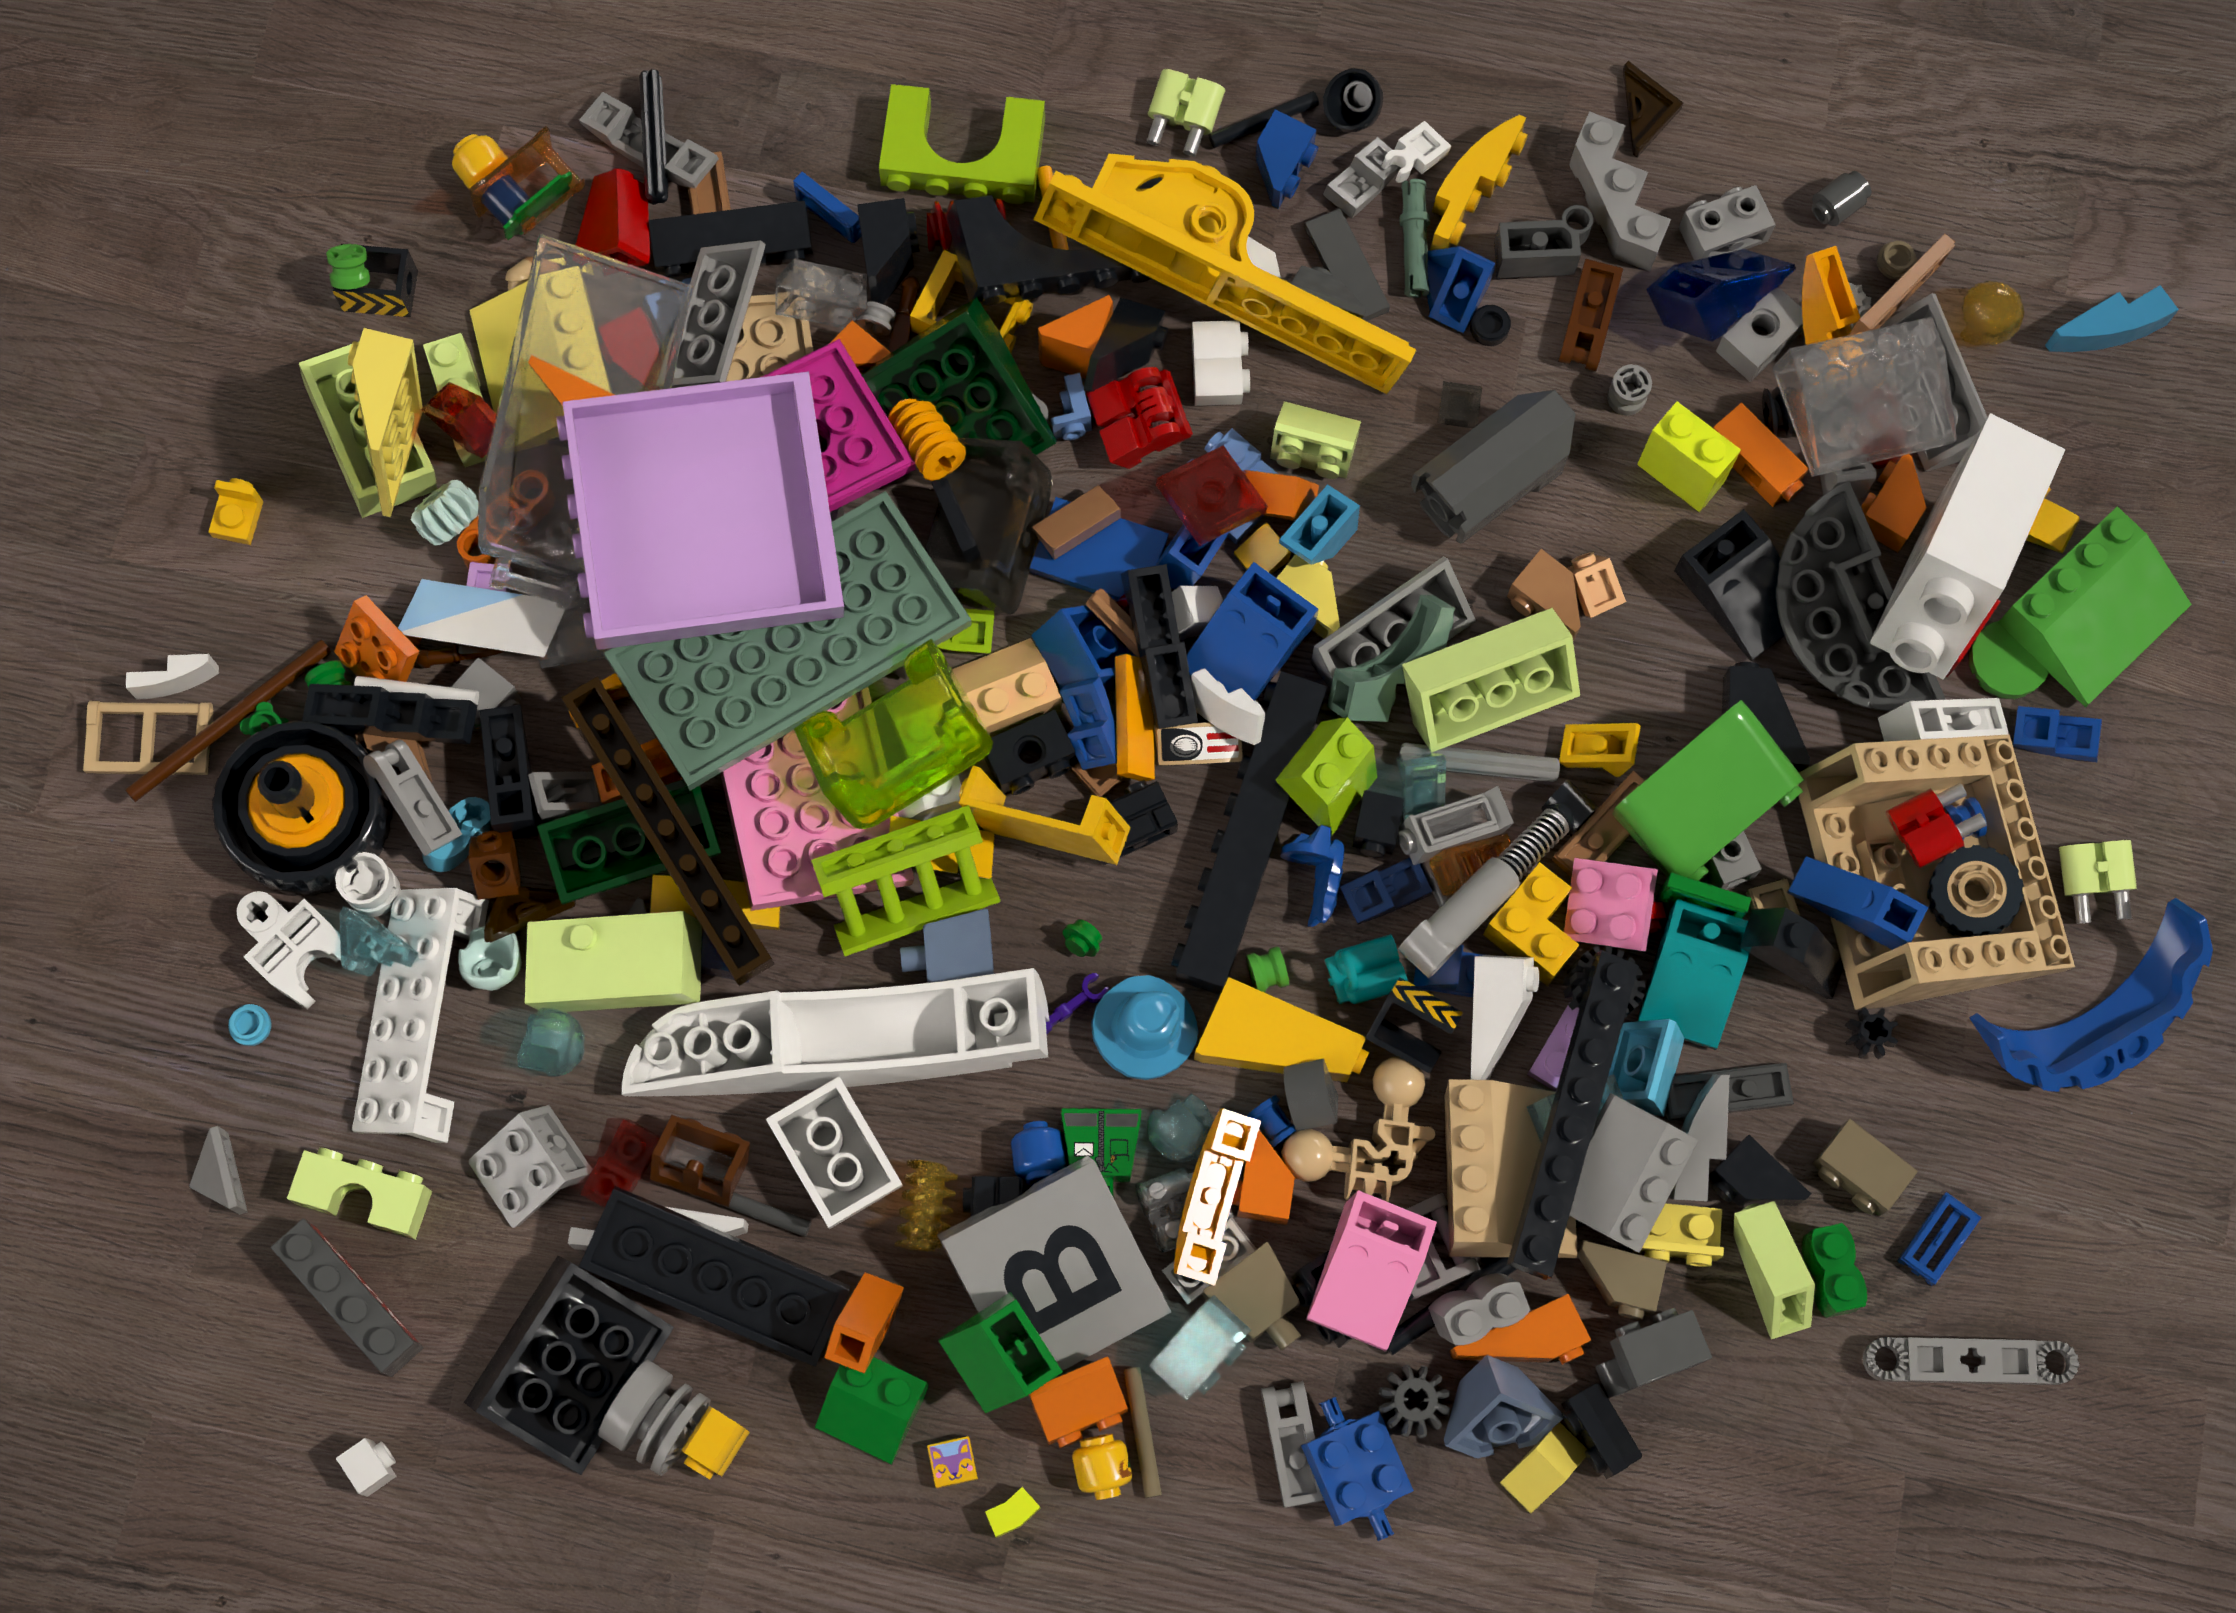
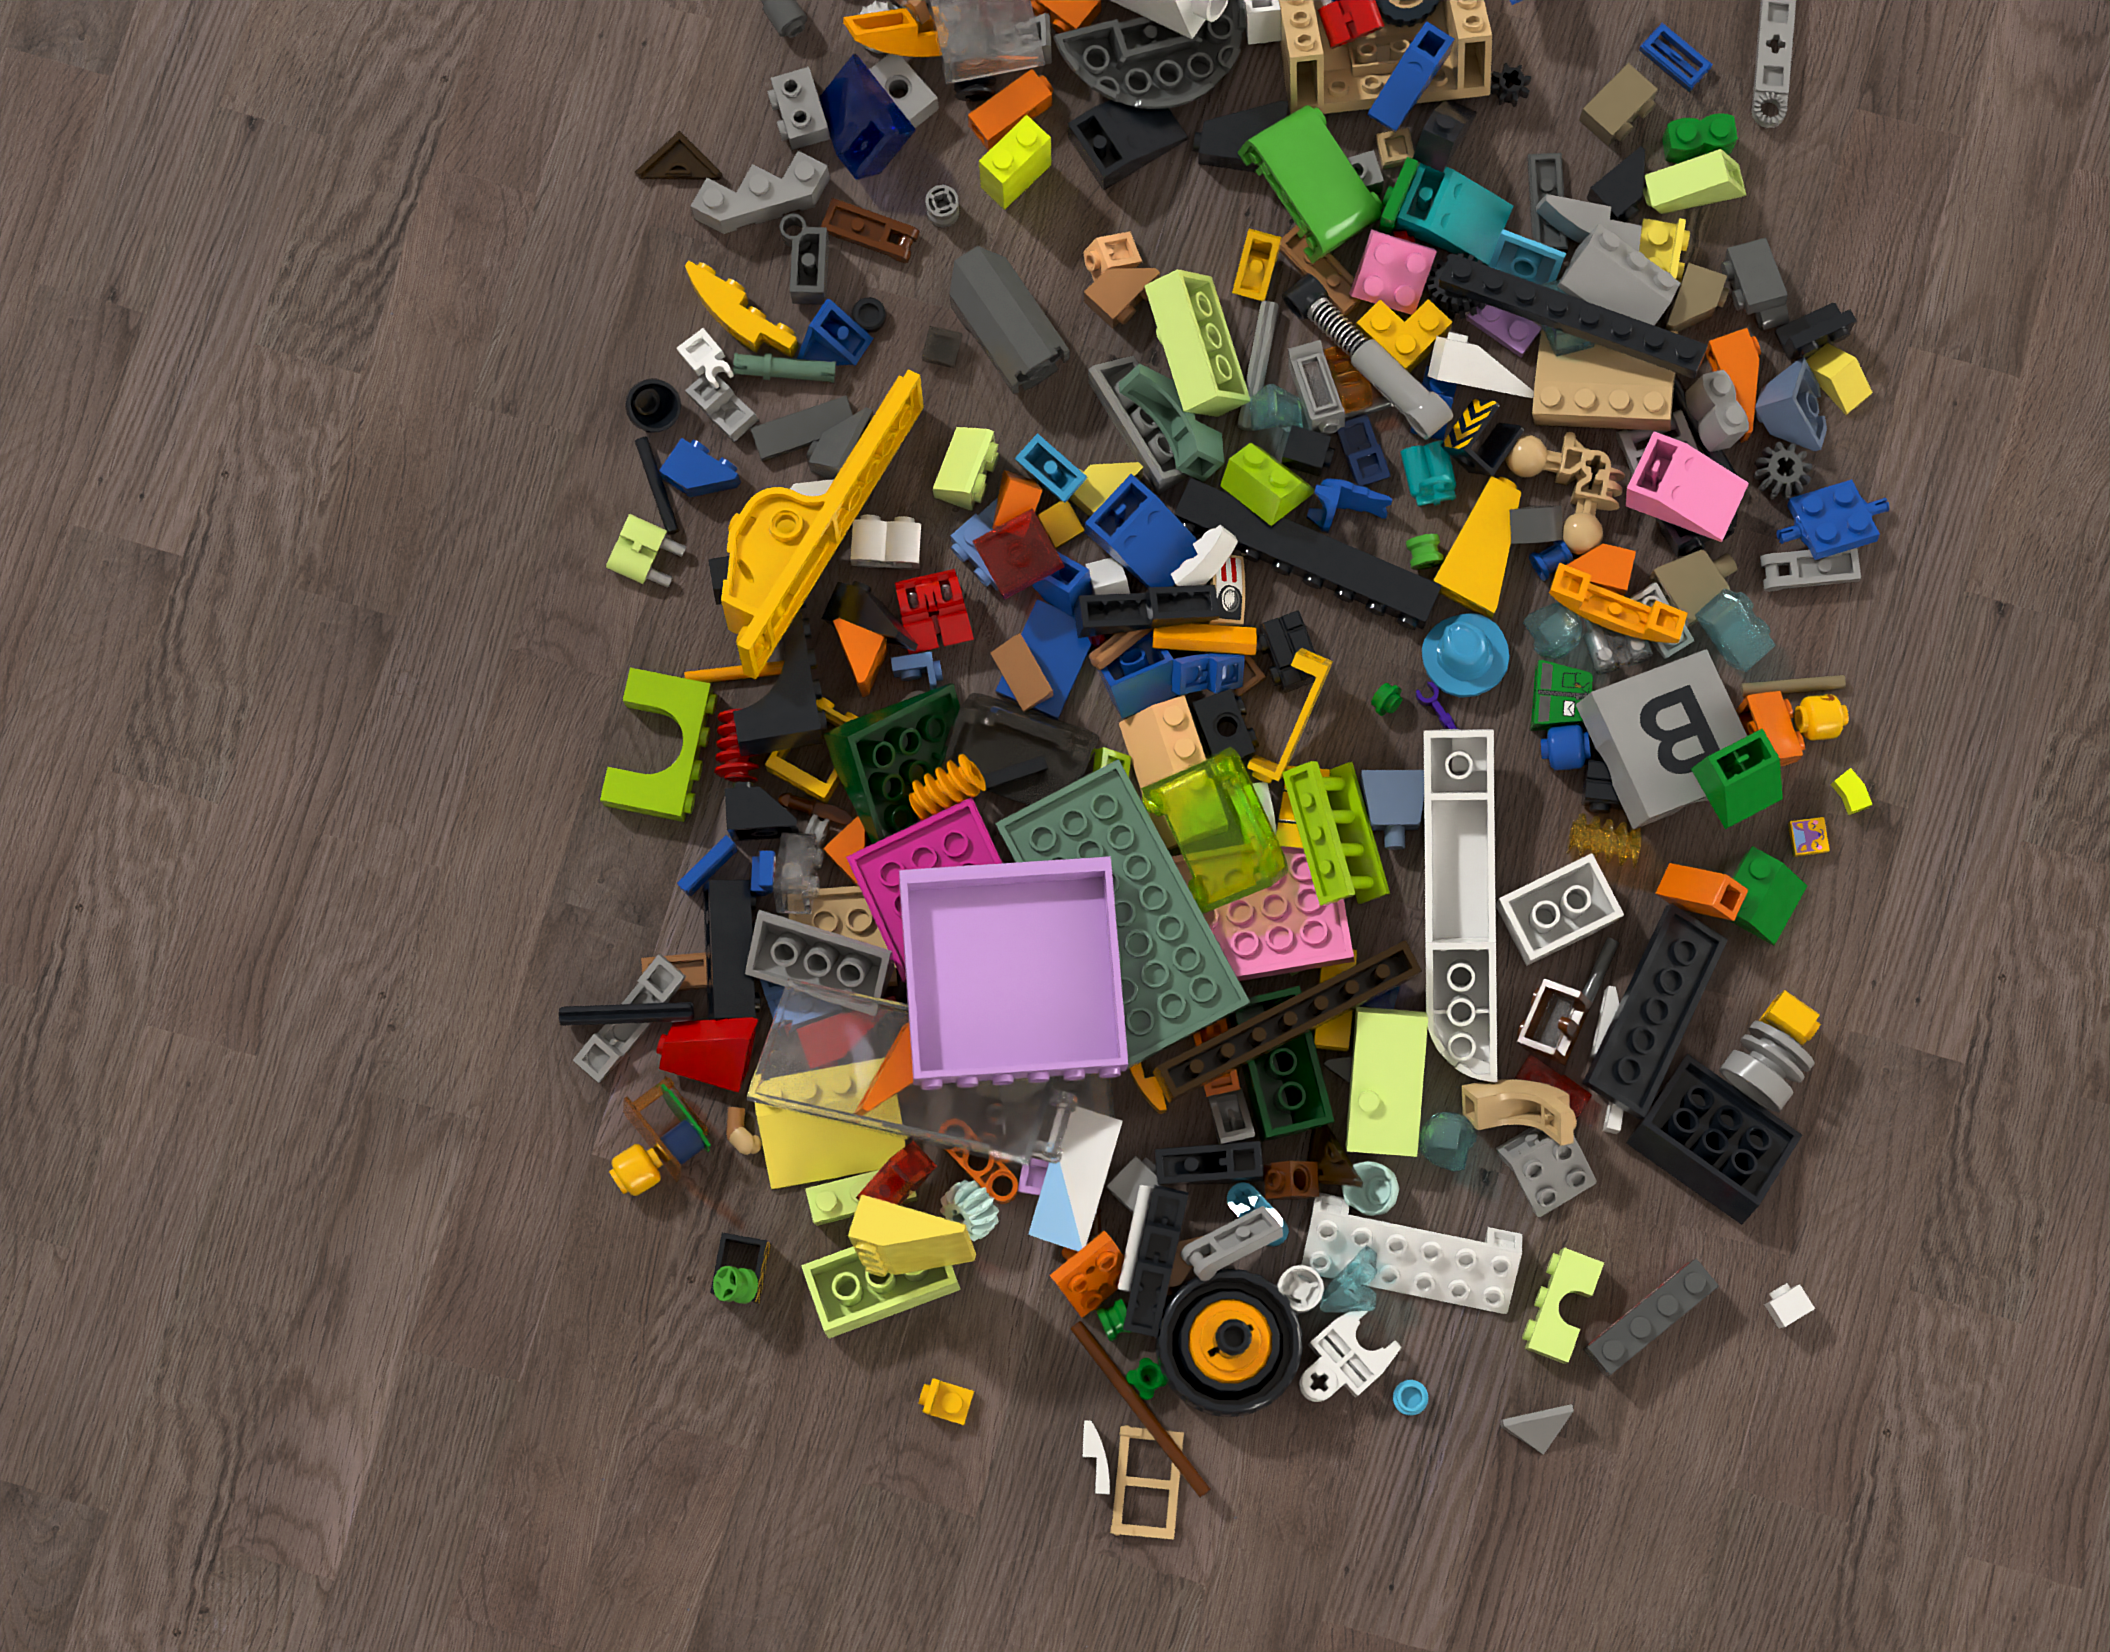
camera: 80 degrees left, 5 degrees up
(597, 1123) = (1520, 1103): none -> tan arch
(819, 252) = (763, 873): none -> blue slope

